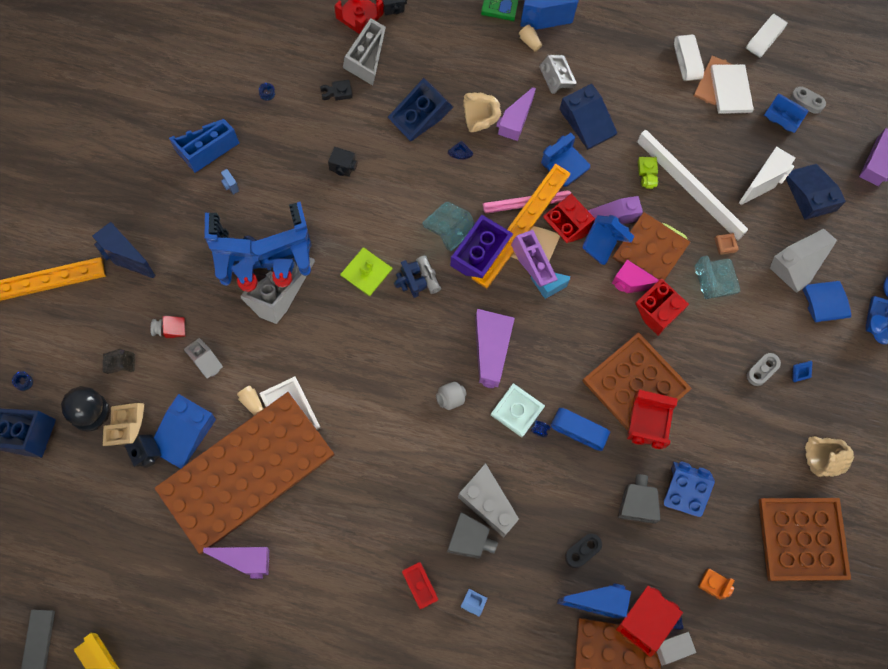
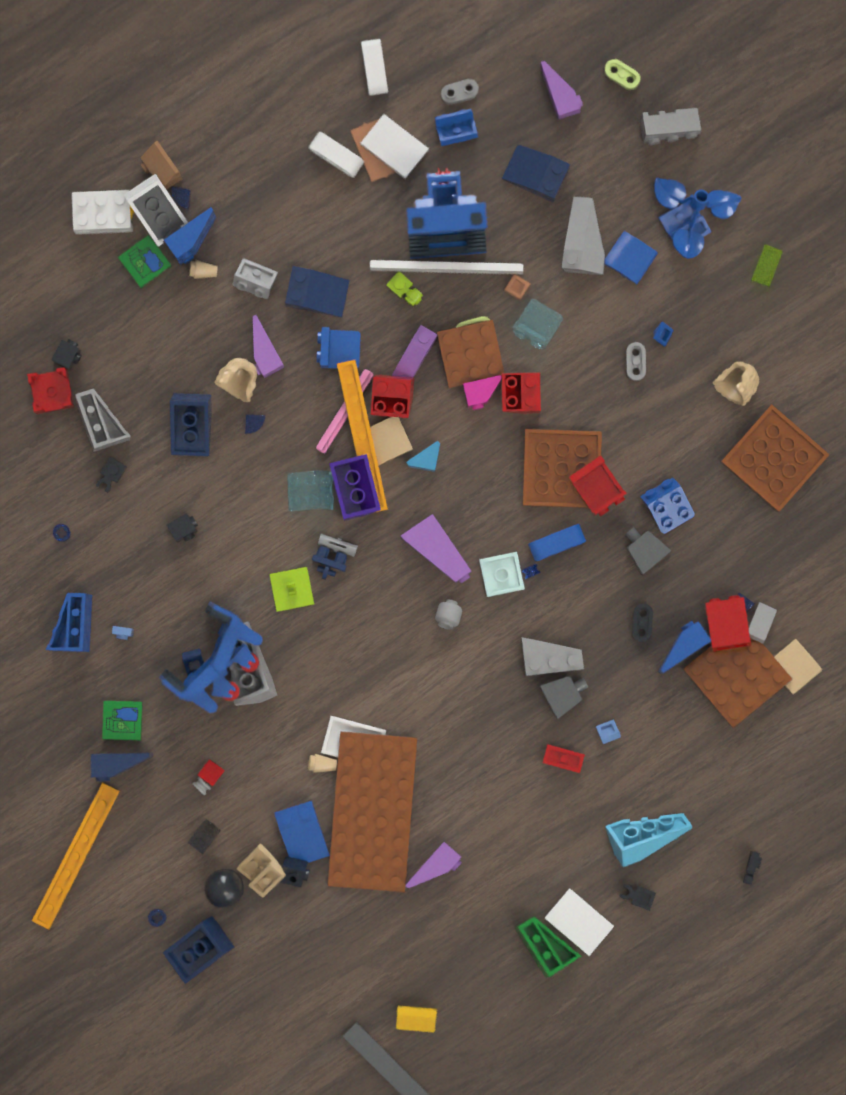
camera: 35 degrees left, 15 degrees up
(162, 234) = (122, 720): none -> green tile
(203, 358) = (256, 771): light grey slope -> none
(533, 258) = (402, 458): medium lavender slope -> none
(604, 236) = (430, 385): blue bracket -> none
(716, 584) = (747, 551): orange bracket -> none
(738, 132) = (446, 221): none -> blue container
(773, 172) = (494, 194): white slope -> none

